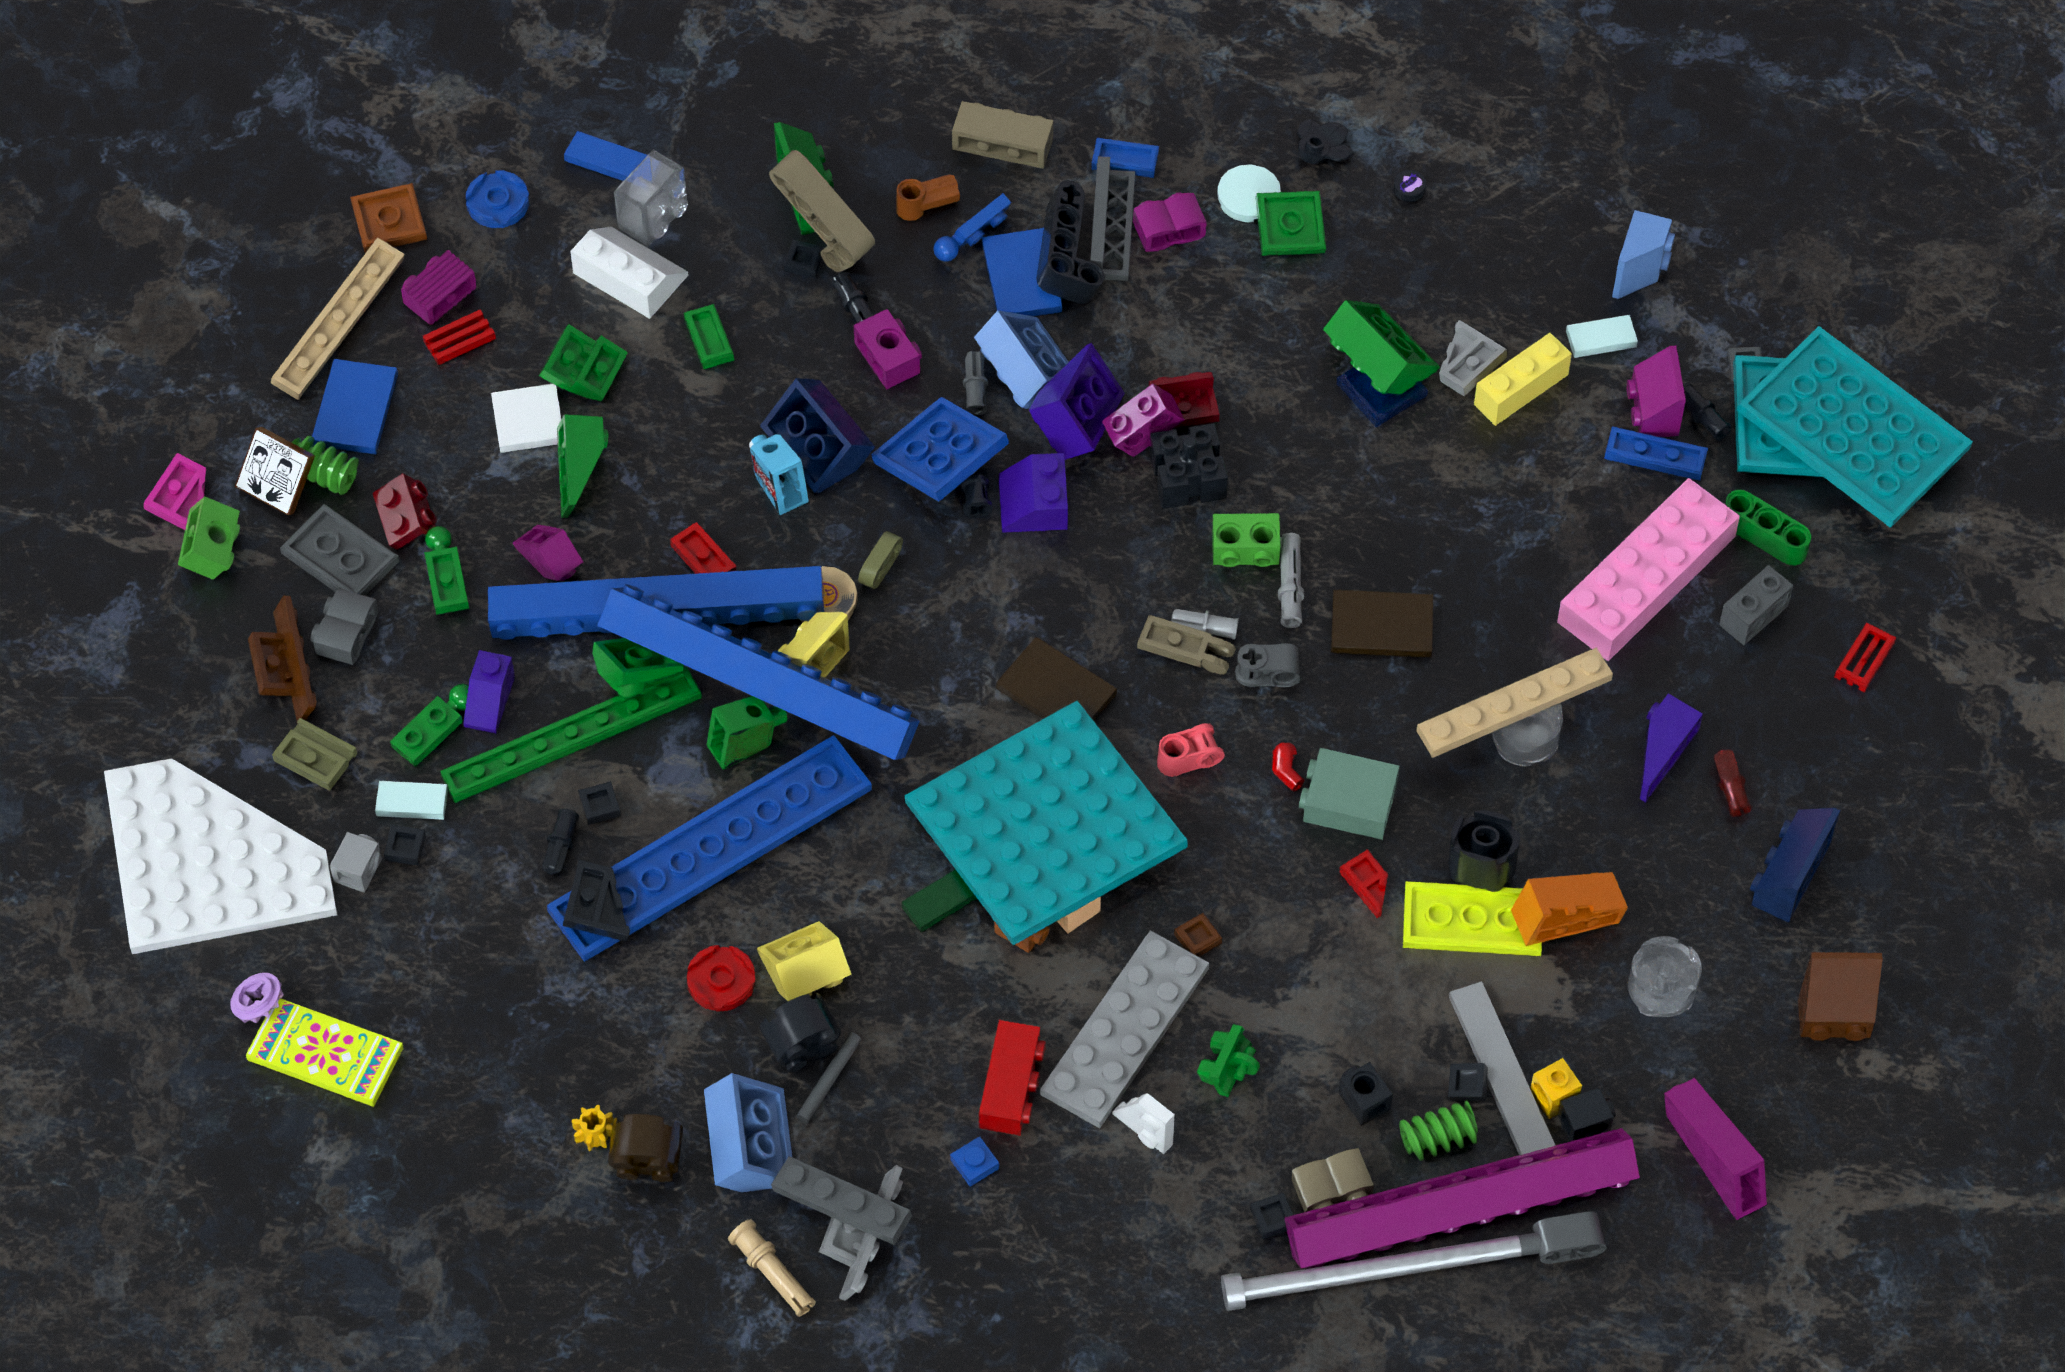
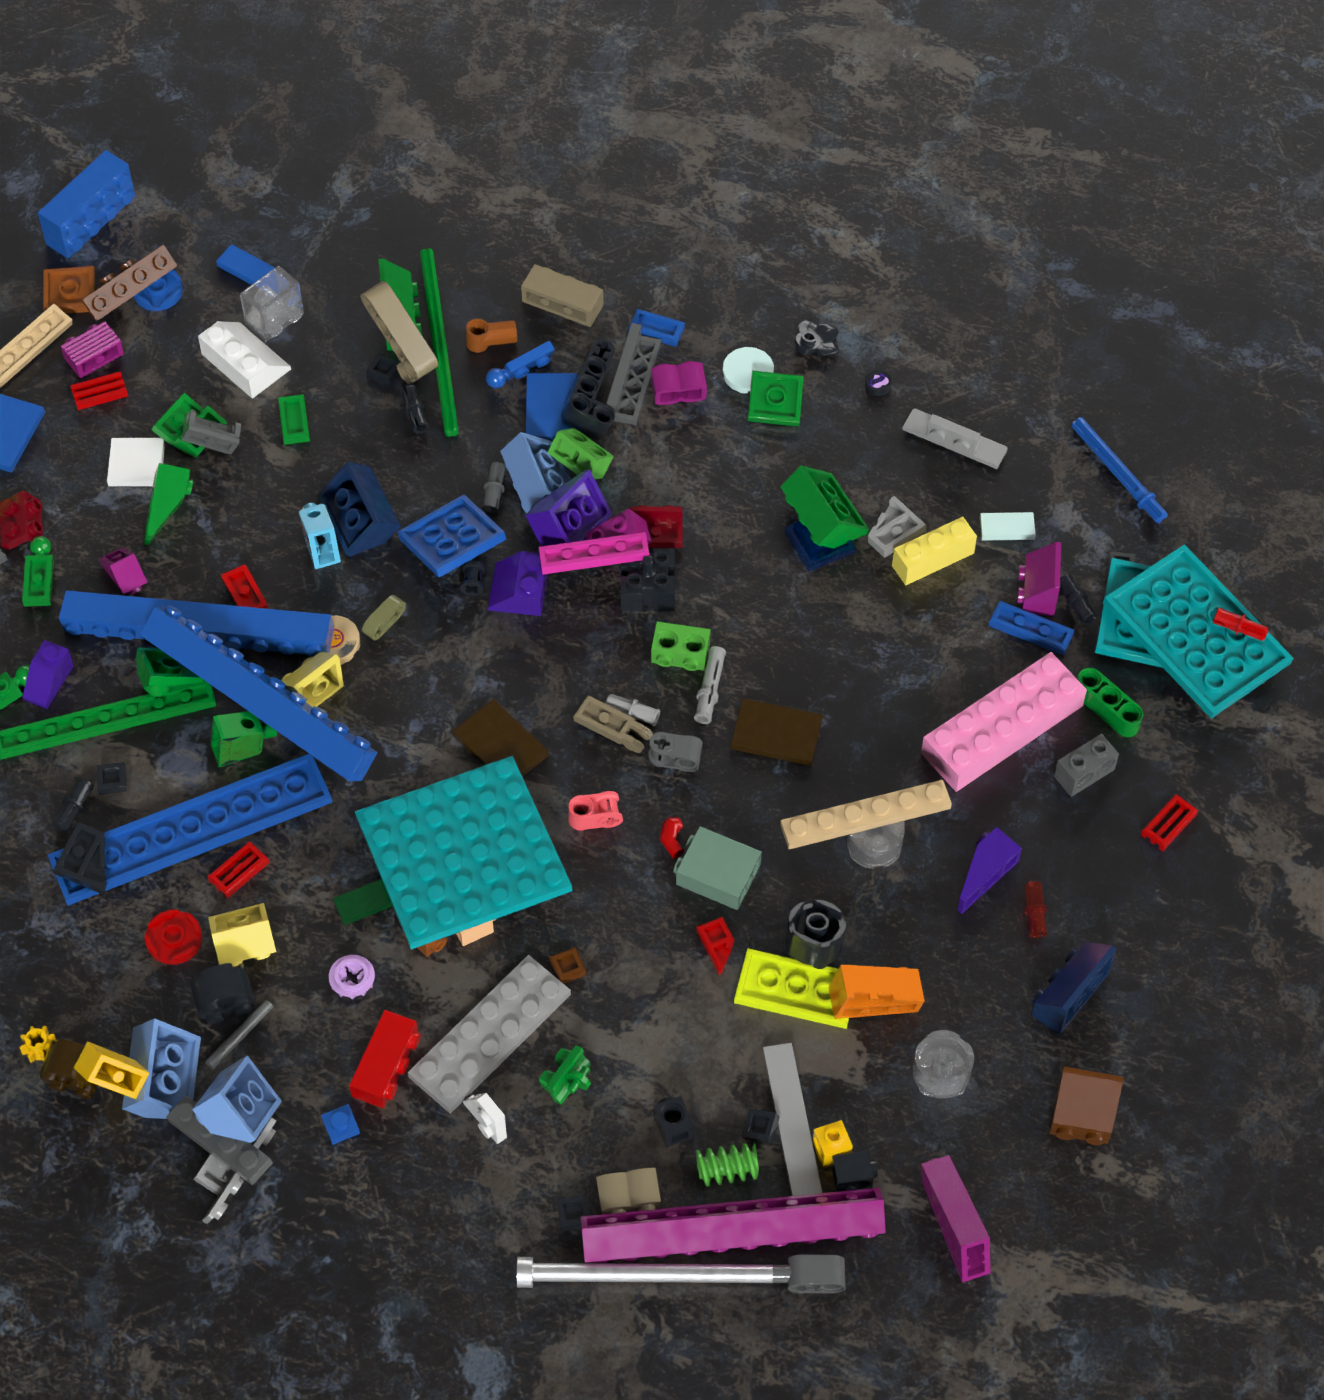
camera: 10 degrees right, 0 degrees up
(388, 107) = (86, 204): none -> blue brick
(462, 196) = (128, 282): none -> bracket
(614, 370) = (210, 434): none -> dark grey hinge
(698, 1140) = (111, 1070): none -> yellow brick
(762, 1256) = (147, 1175): tan pin -> none
(763, 908) = (258, 856): none -> red tile
(853, 1153) = (237, 1102): none -> medium blue slope
(862, 209) = (439, 342): none -> green axle
(890, 365) = (431, 463): magenta brick -> none
(946, 975) = (356, 965): none -> lavender gear
(1071, 325) = (580, 453): none -> bright green brick
(1121, 443) = (593, 553): none -> dark pink plate
(1517, 238) = (955, 438): none -> light grey bracket
(1643, 253) = (1052, 464): medium blue slope -> none
(1751, 273) = (1144, 498): none -> blue axle
(1904, 411) = (1239, 624): none -> red axle

